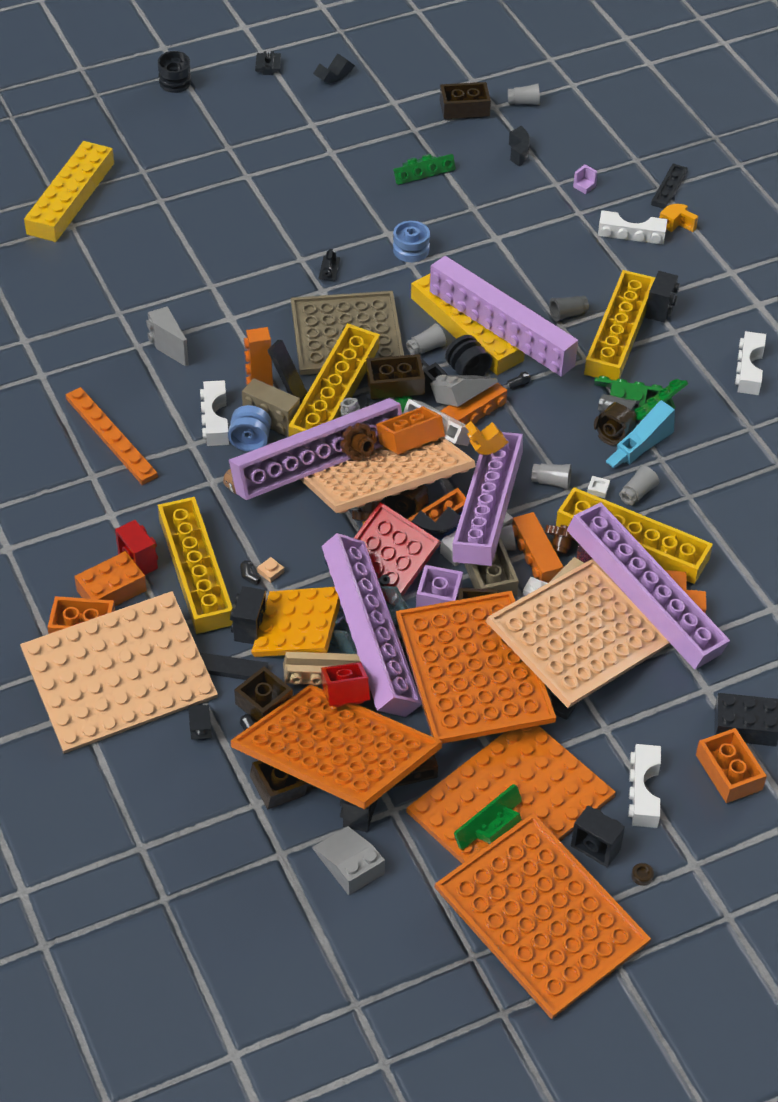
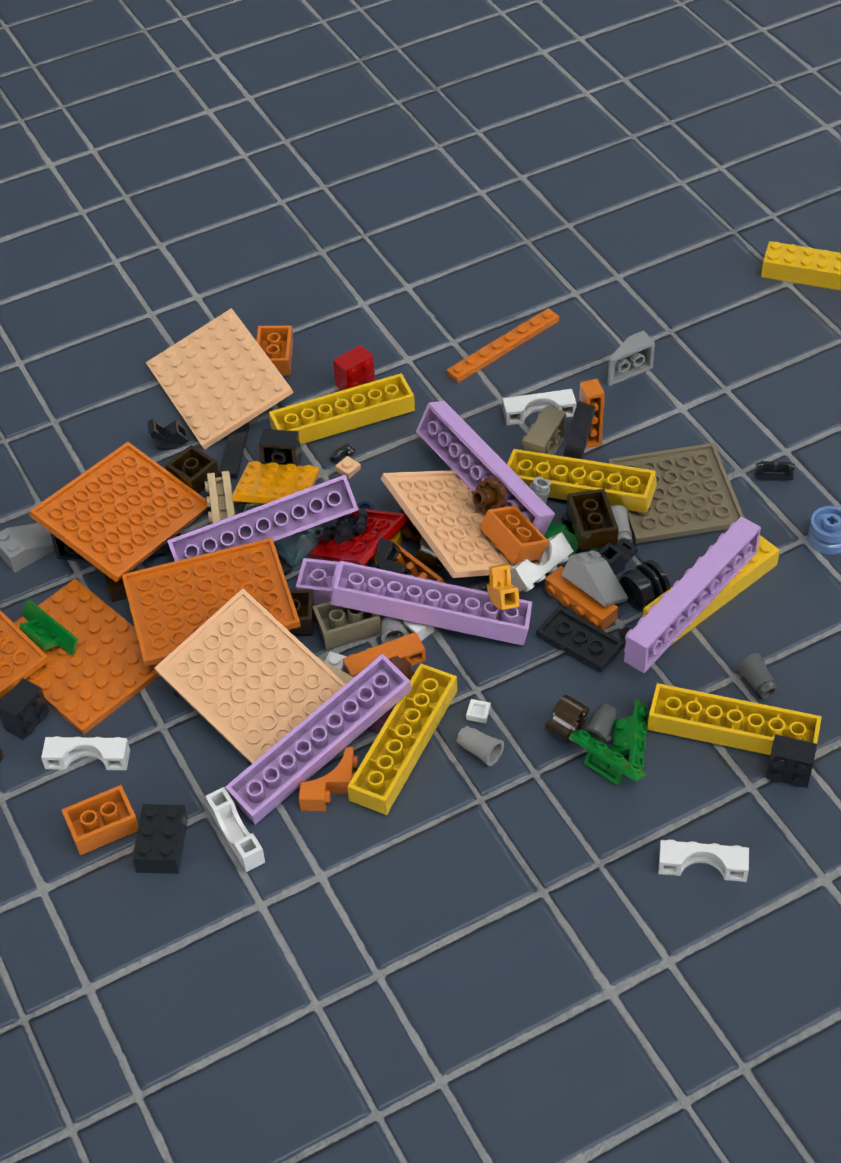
camera: 90 degrees right, 0 degrees up
(112, 580) = (315, 362): orange brick -> none
(249, 428) = (512, 426): medium blue wheel -> none
(345, 684) = (191, 511): red brick -> none
(383, 560) = (350, 525): none -> black plate
(427, 340) = (673, 554): light grey plant -> none
(520, 410) = (580, 638): none -> black plate
(552, 474) = (487, 670): light grey plant -> none
(650, 431) = (564, 752): medium azure piece -> none
(757, 652) = (240, 840): none -> white arch

